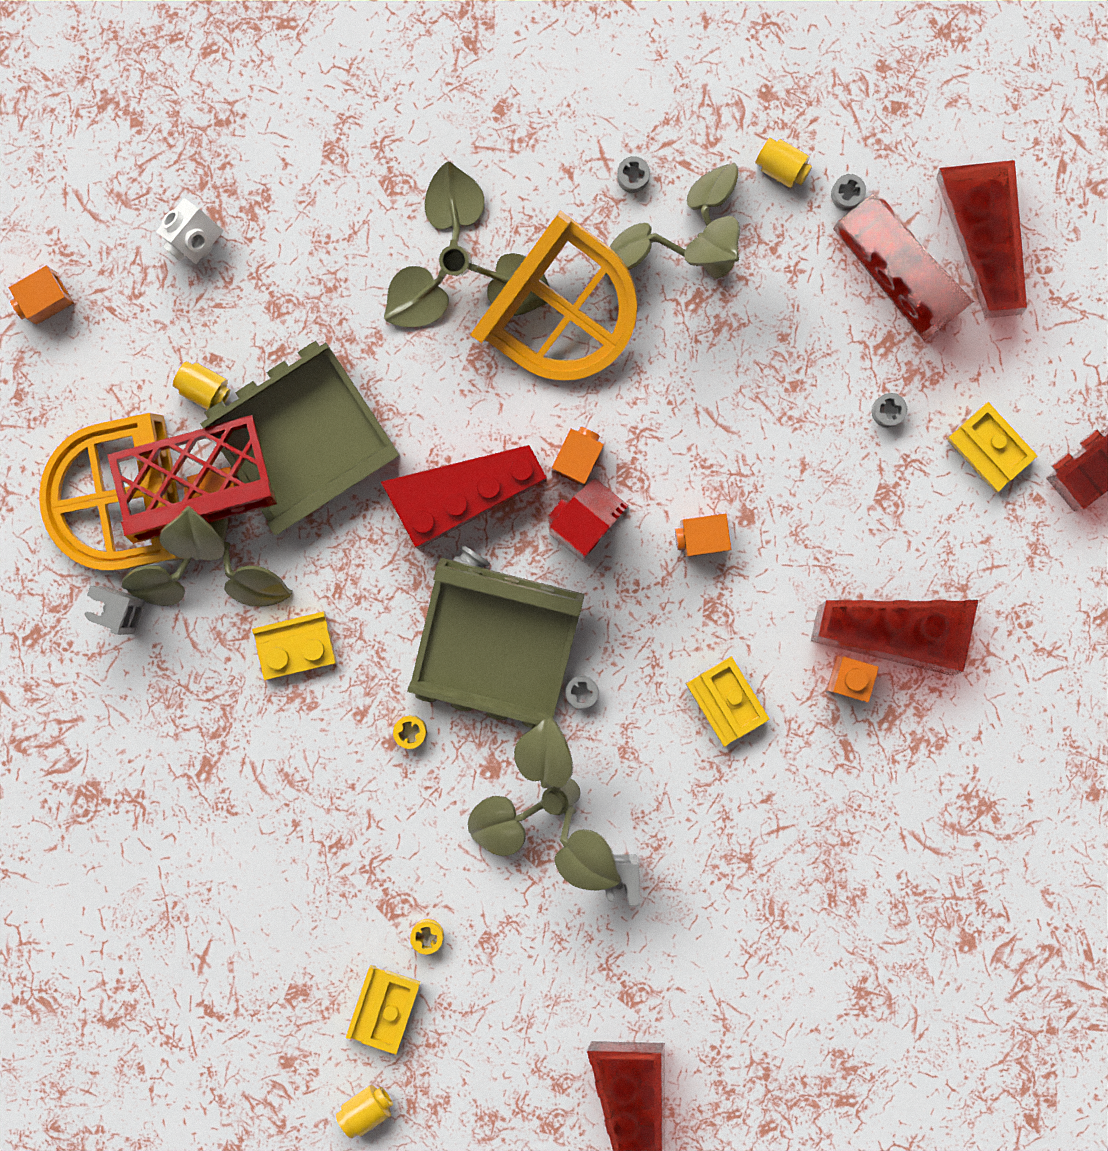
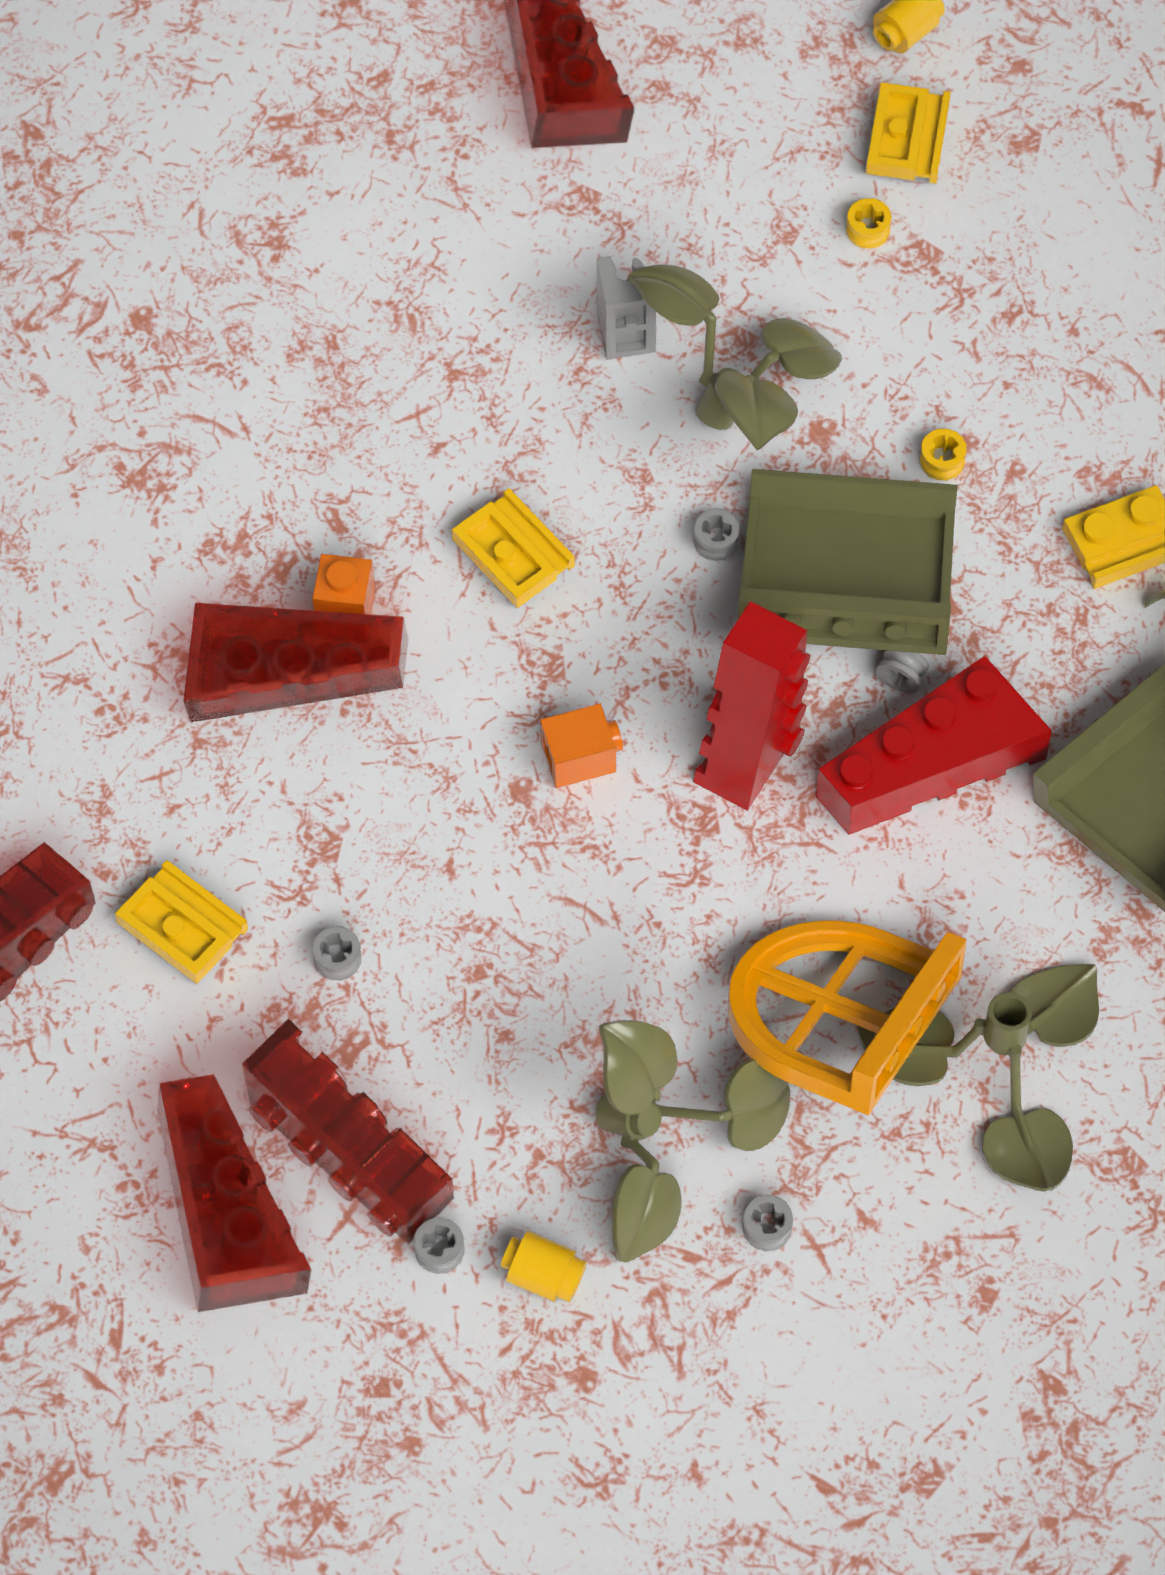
camera: 170 degrees right, 25 degrees down
(578, 455) = (778, 820): orange brick -> none

